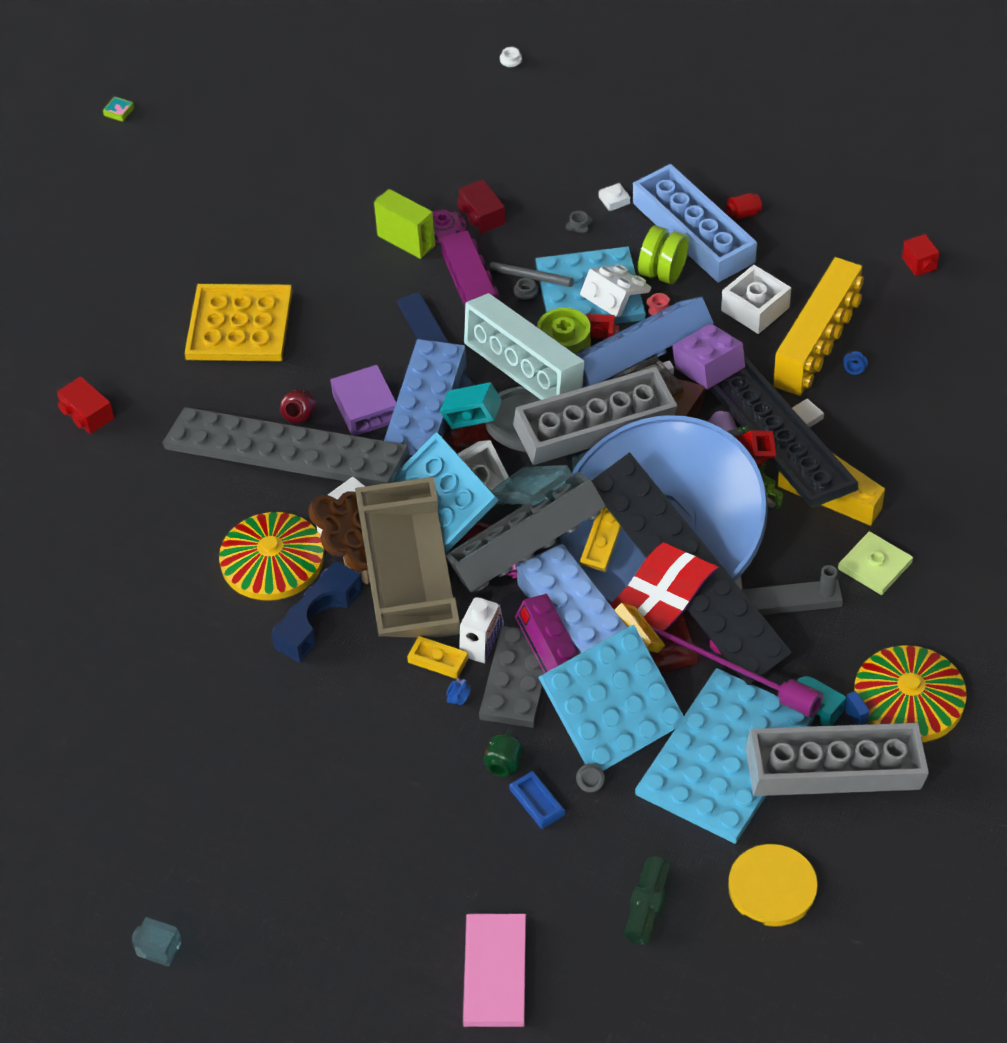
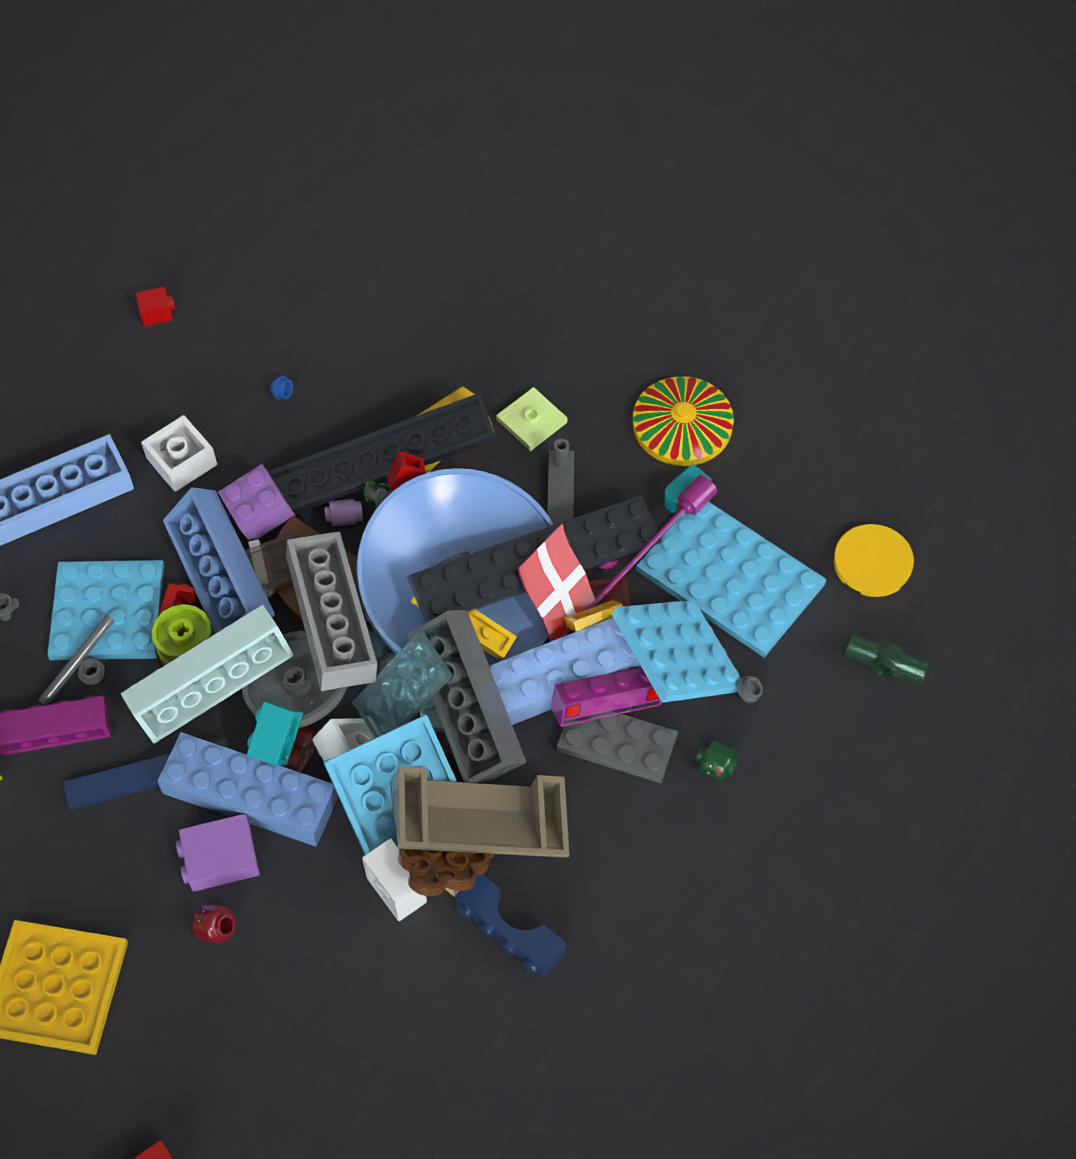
camera: 85 degrees left, 10 degrees up
(156, 941) = (905, 1109): clear light blue brick -> none
(271, 556) = (418, 971): dish -> none
(286, 447) = (276, 943): dark grey plate -> none
(437, 657) = (588, 810): yellow plate -> none
(458, 692) = (637, 789): blue plate -> none
(485, 621) = (565, 760): white torso -> none
(494, 970) = (947, 797): bright pink tile -> none
(537, 800) = (764, 740): blue tile -> none
(611, 287) = (131, 577): white bracket -> none
(657, 303) = (152, 540): coral plate -> none
(663, 254) = (95, 524): lime wheel -> none
(743, 206) = (33, 445): red brick -> none
(808, 412) = (334, 437): white tile -> none
(818, 327) = (236, 404): yellow brick -> none
(836, 759) = (764, 482): light grey brick -> none
(856, 709) = (704, 459): blue tile -> none

